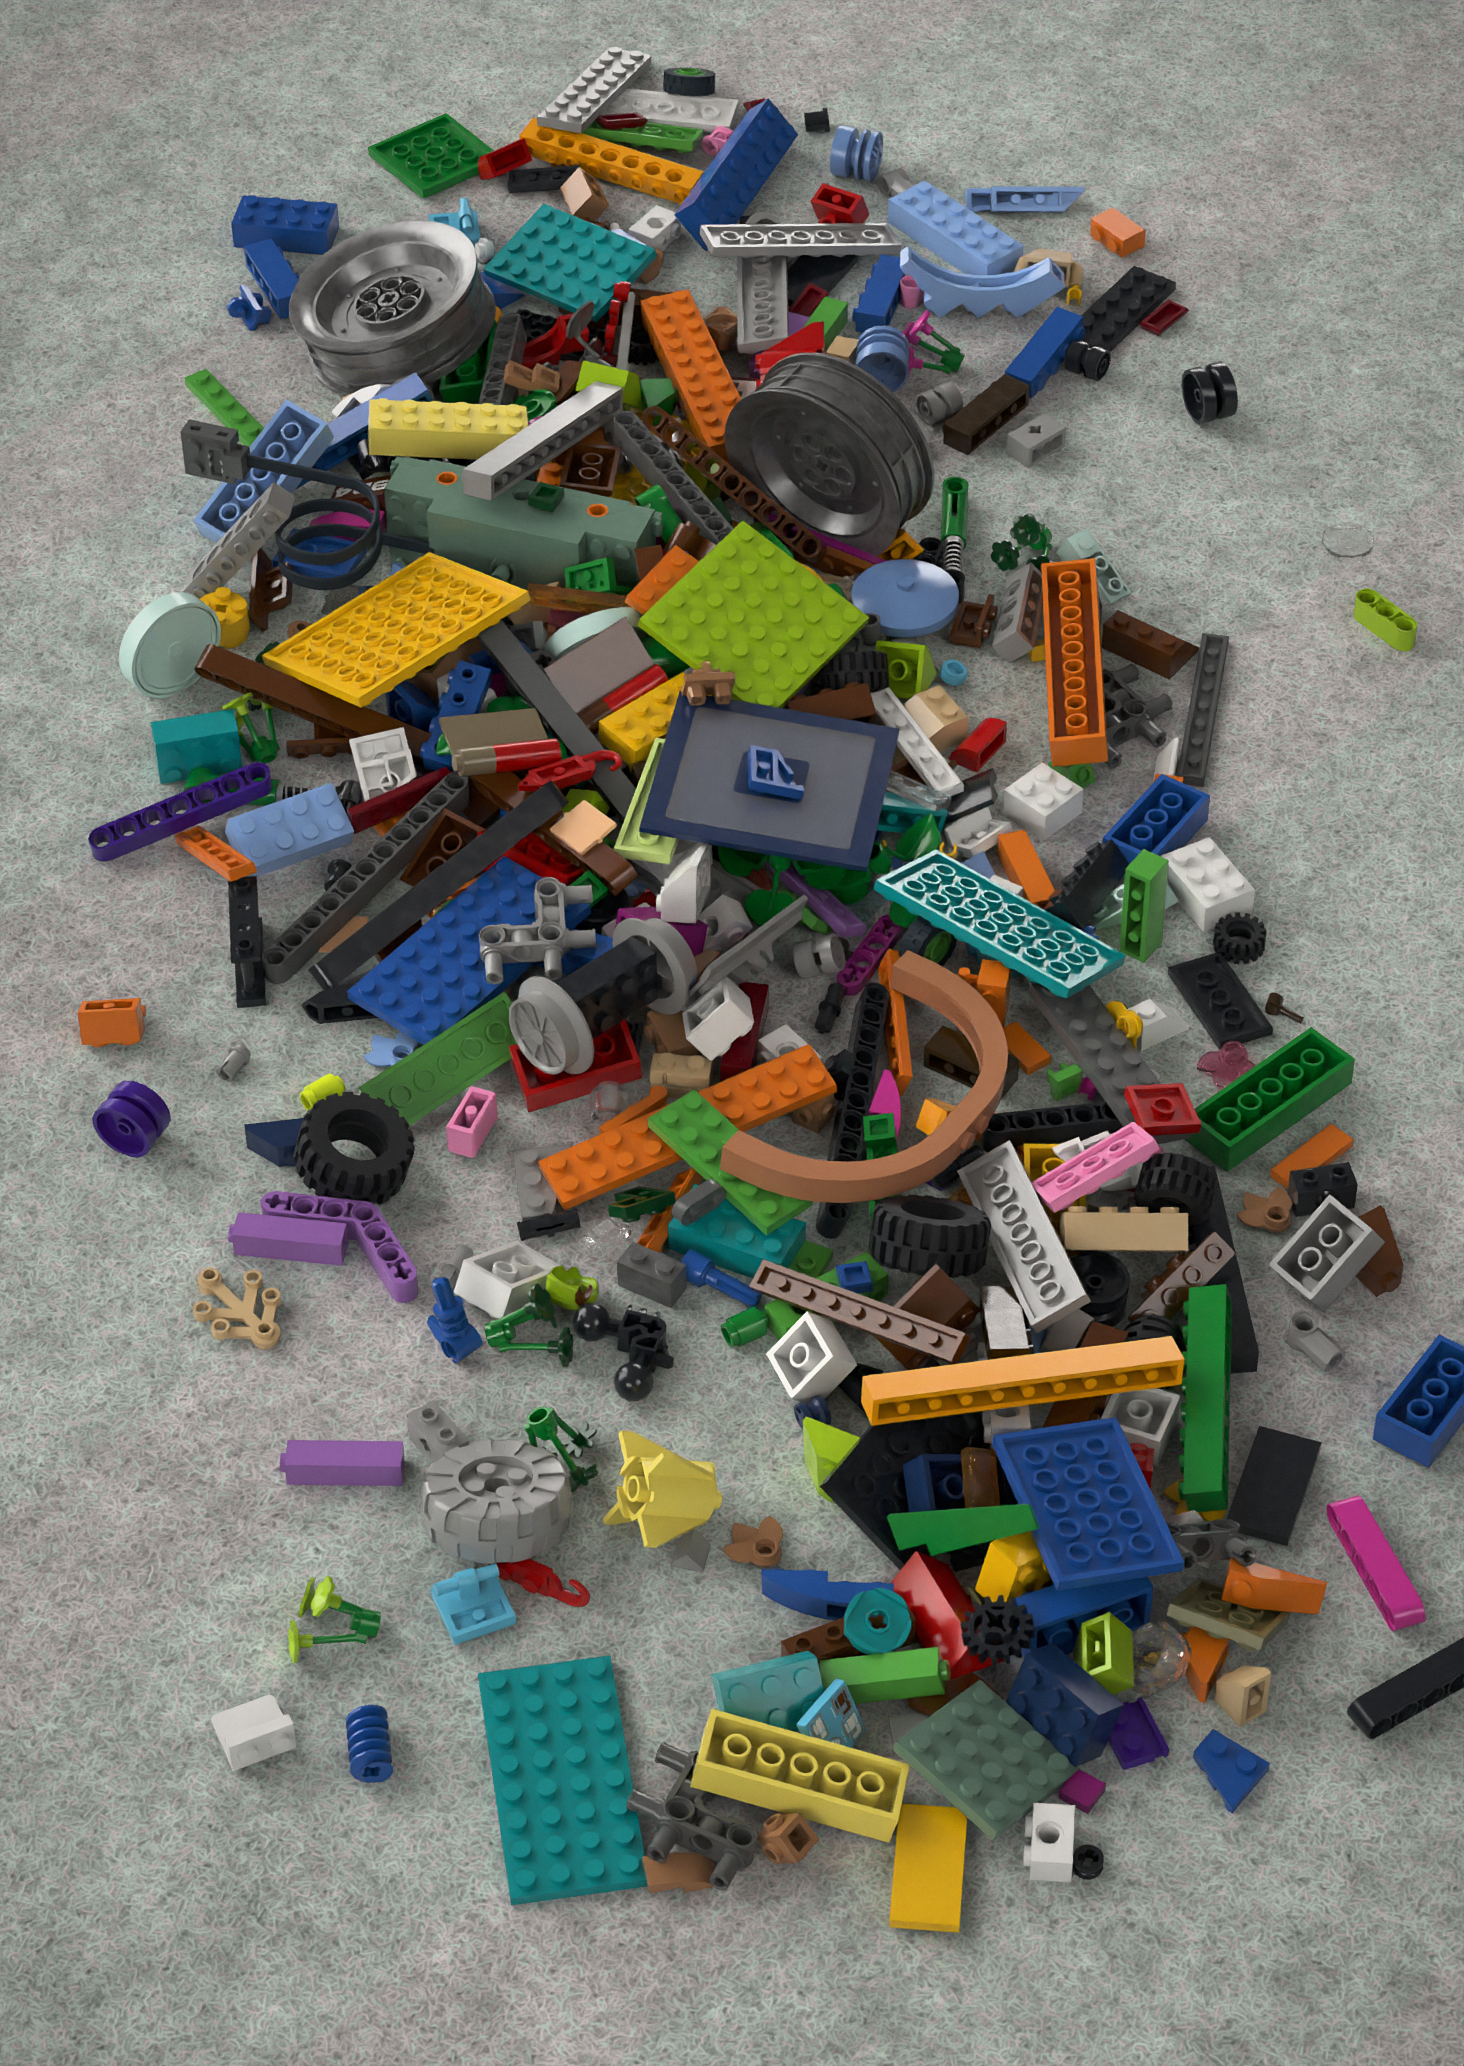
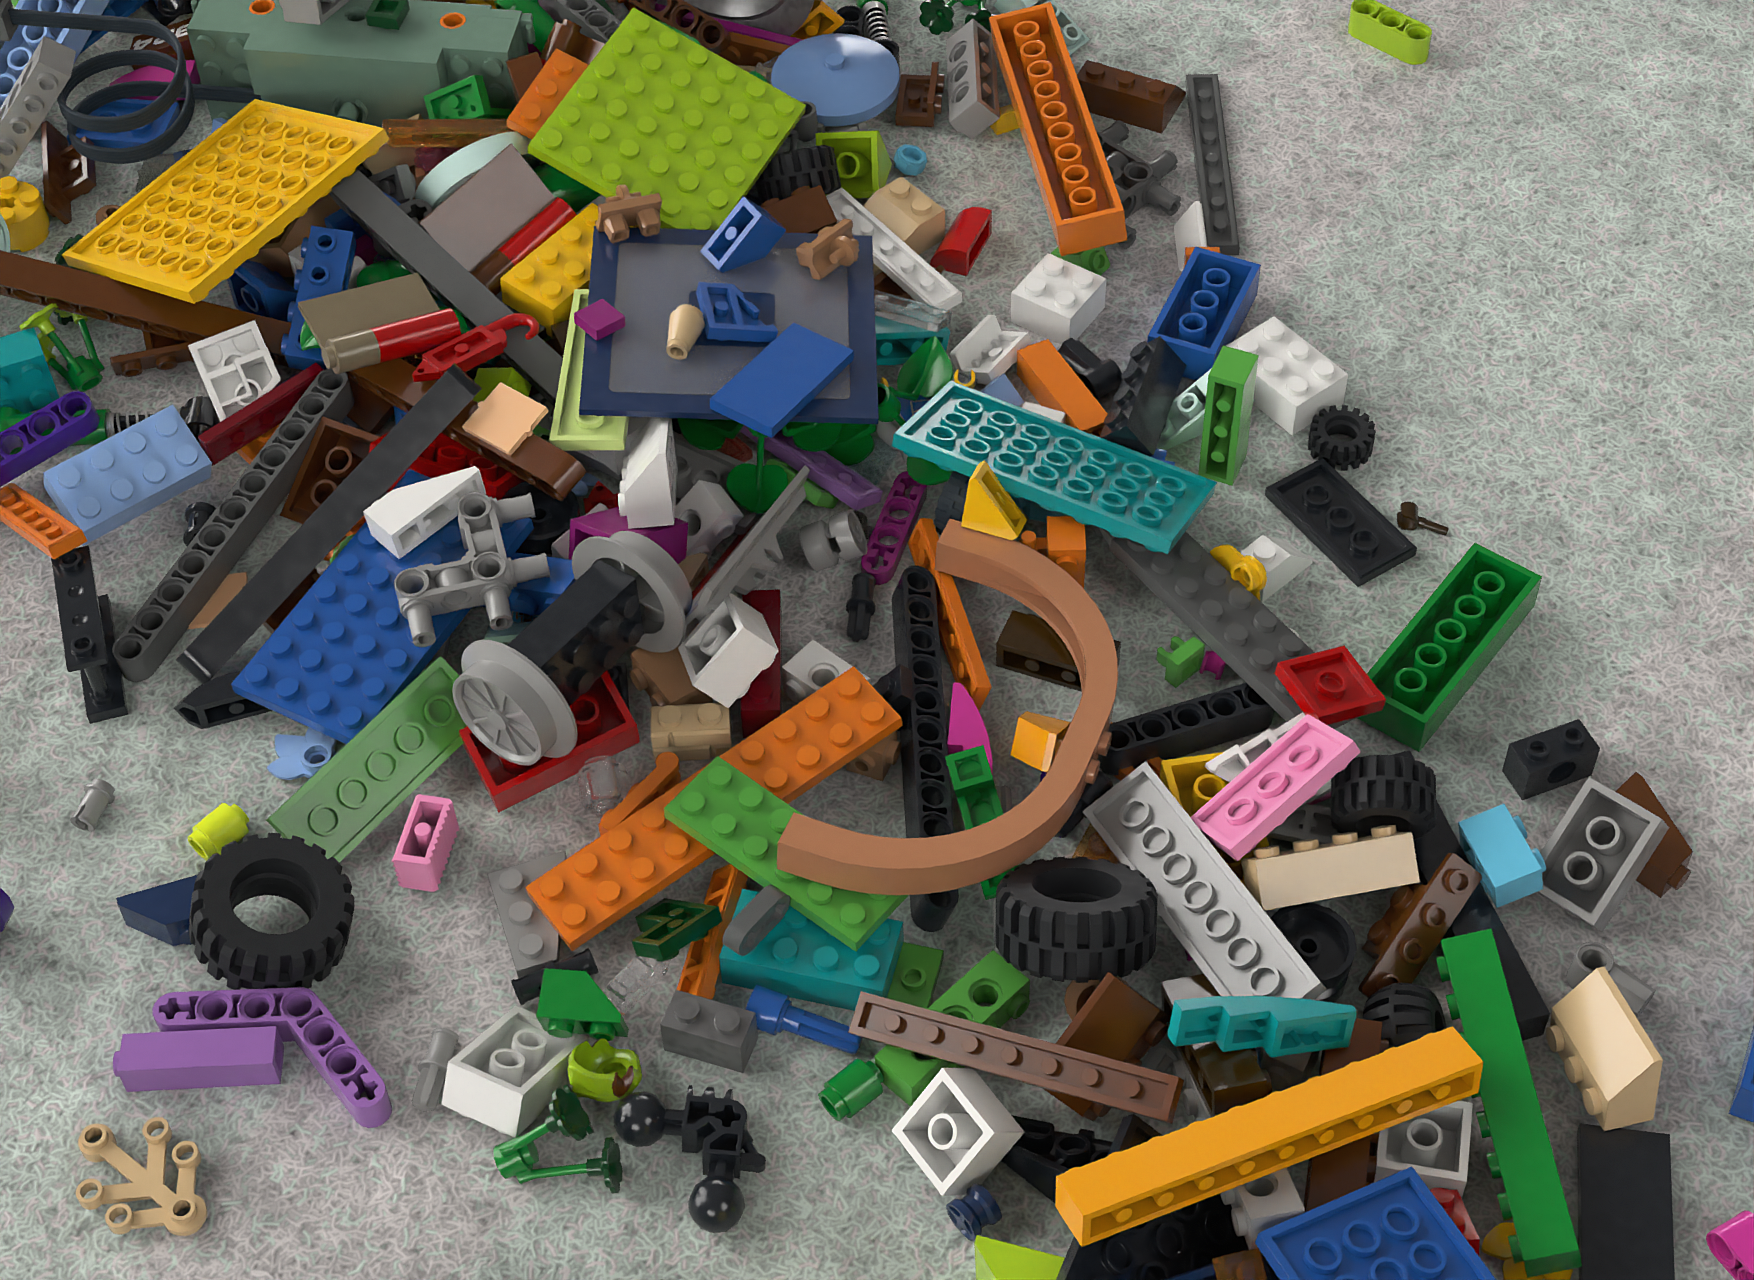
camera: 10 degrees left, 5 degrees up
(452, 1327) = (446, 1160): blue piece -> none
(506, 885) = (420, 509): none -> white slope
(560, 1242) = (576, 1004): none -> green slope
(599, 890) = (524, 485): green plate -> none
(668, 762) = (599, 319): none -> magenta tile
(731, 780) = (684, 329): none -> tan cone
(794, 715) = (743, 237): none -> blue slope
(799, 827) = (781, 380): none -> blue tile
(854, 1277) = (987, 995): blue tile -> none
(860, 735) = (829, 250): none -> medium nougat hips
(938, 944) = (990, 507): none -> yellow slope
(977, 794) = (979, 305): black slope -> none
(1025, 1048) = (1123, 623): orange tile -> none
(1038, 1313) = (1275, 1023): none -> teal slope
(1053, 858) = (1097, 375): none -> black piece
(1226, 1064) = (1374, 610): clear pink plate -> none
(1254, 1242) = (1501, 855): none -> medium azure brick
(1267, 1213) = (1479, 796): medium nougat plate -> none
(1288, 1381) = (1606, 1052): none -> tan slope
(1316, 1152) = (1518, 713): orange tile -> none

